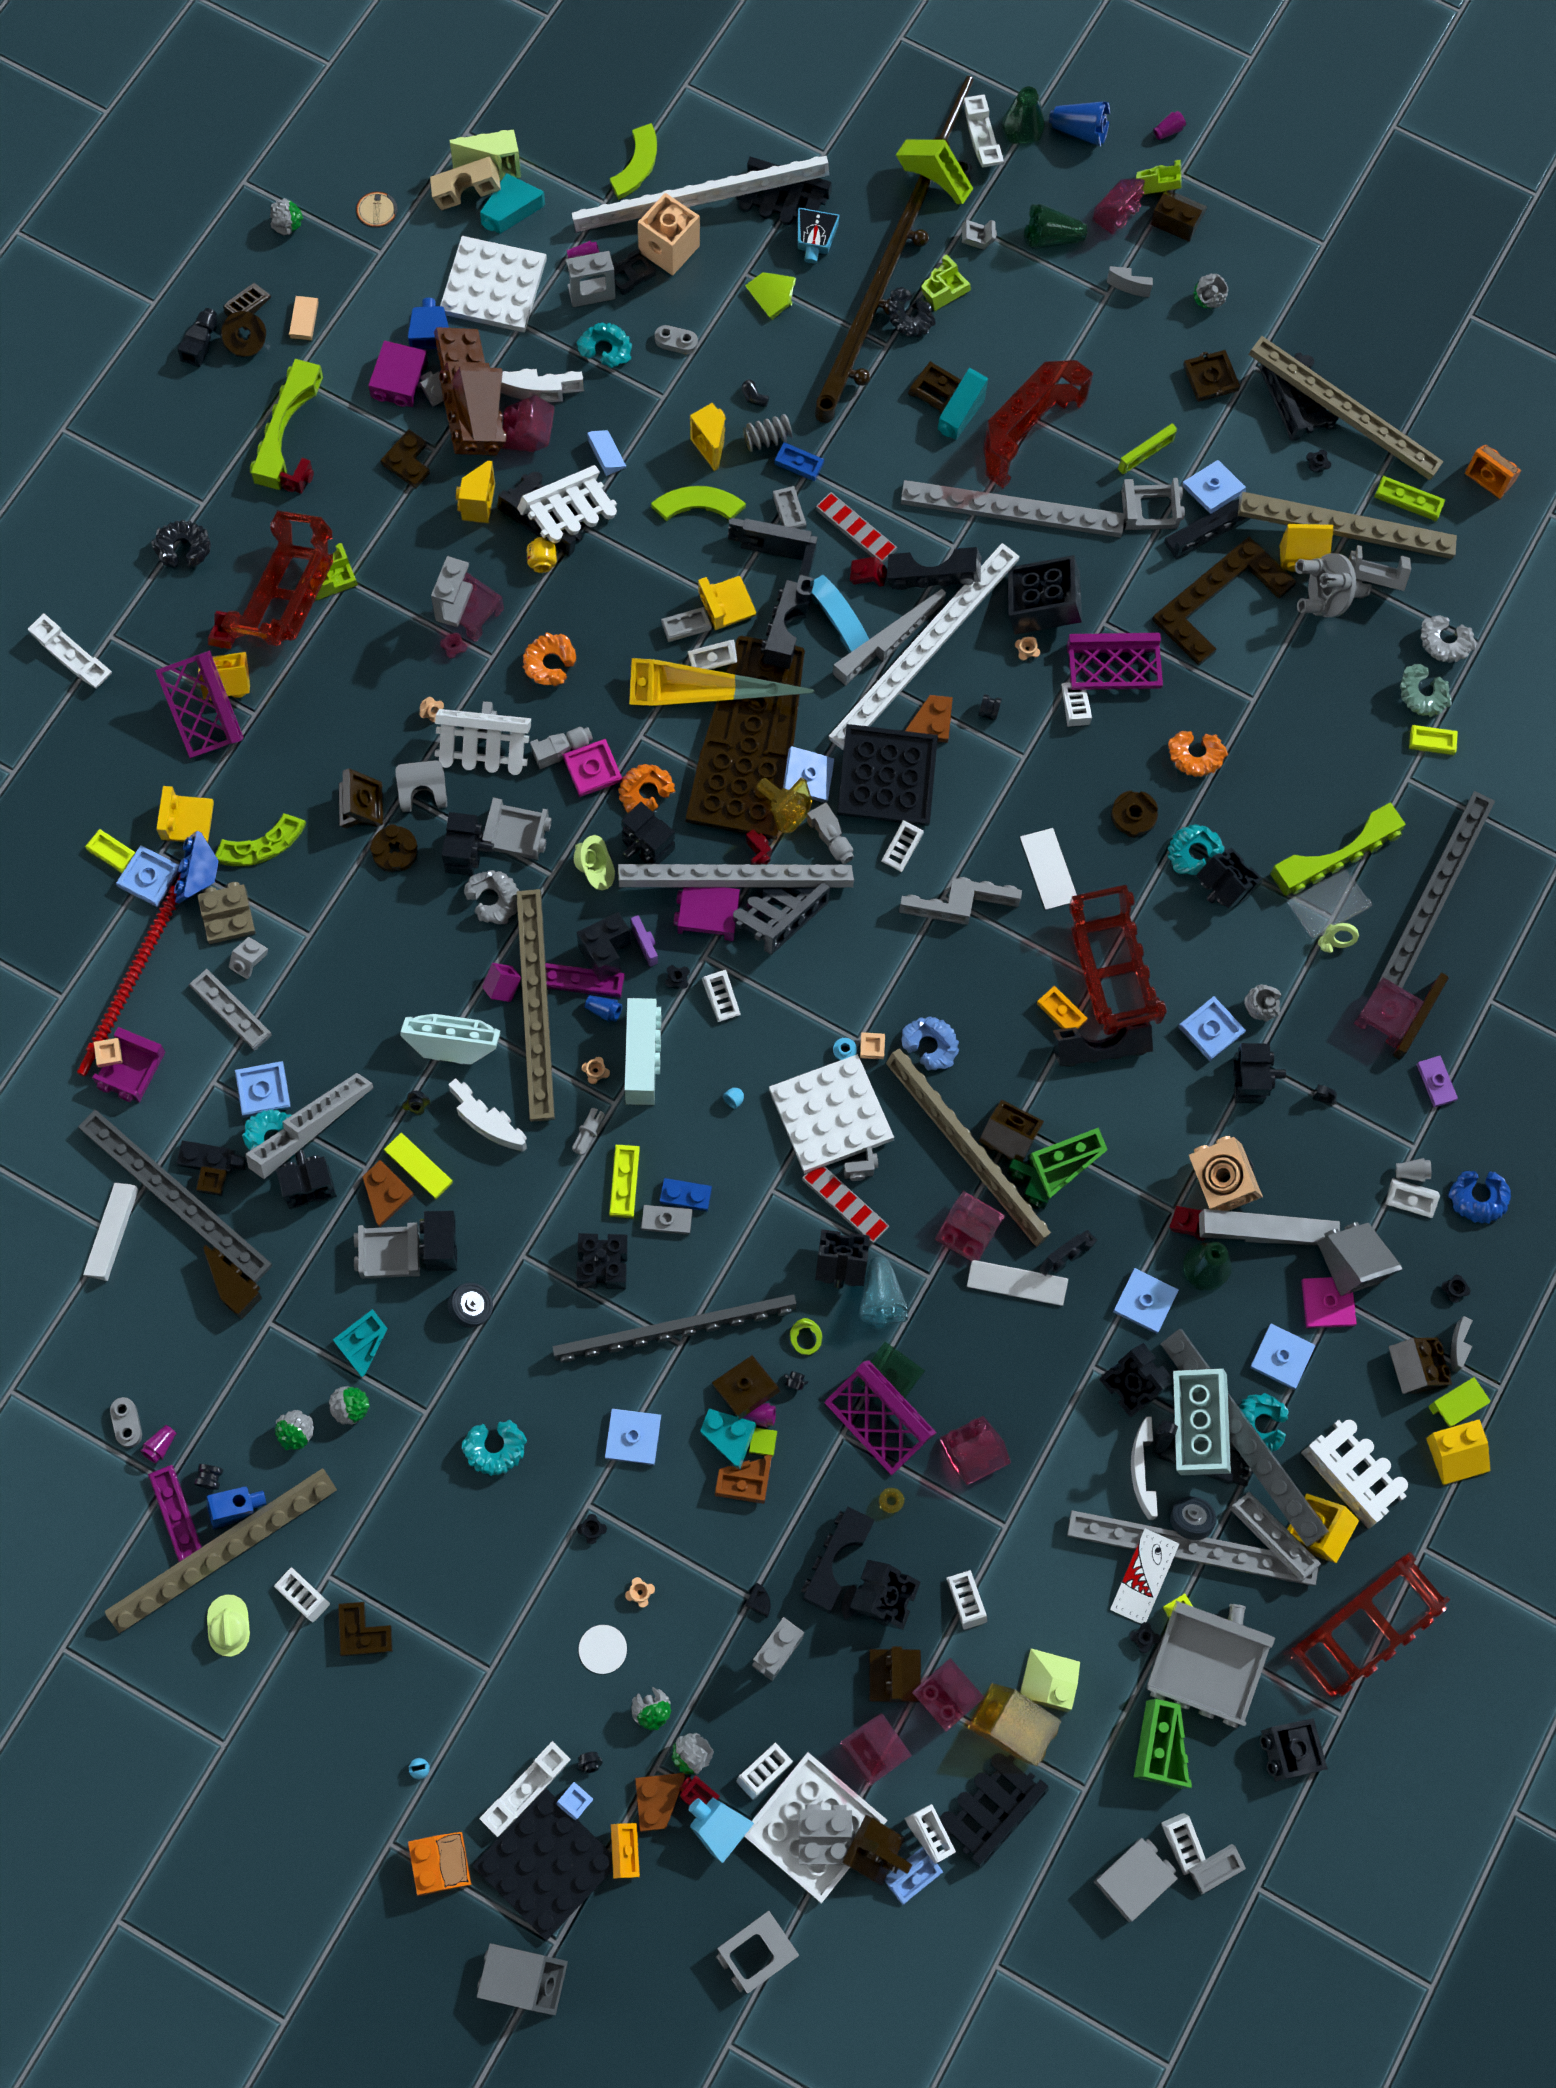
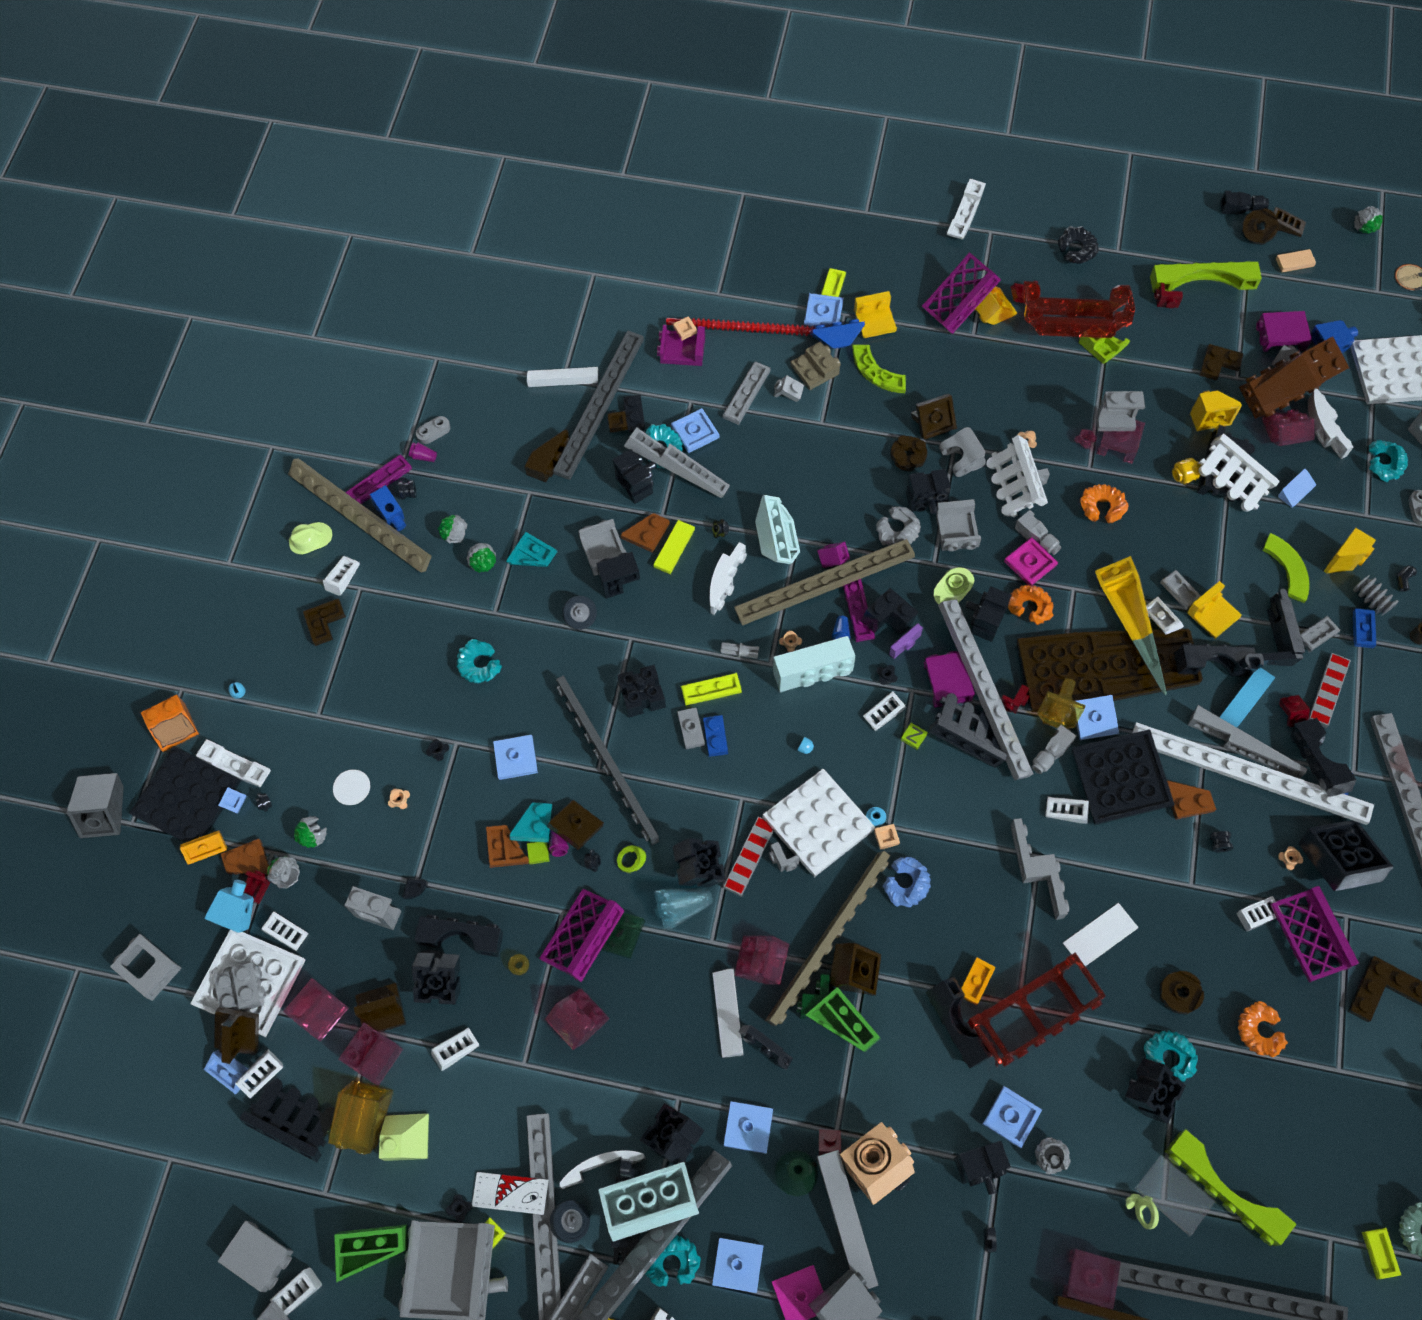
camera: 80 degrees right, 5 degrees down
(762, 974) = (914, 736): none -> lime tile

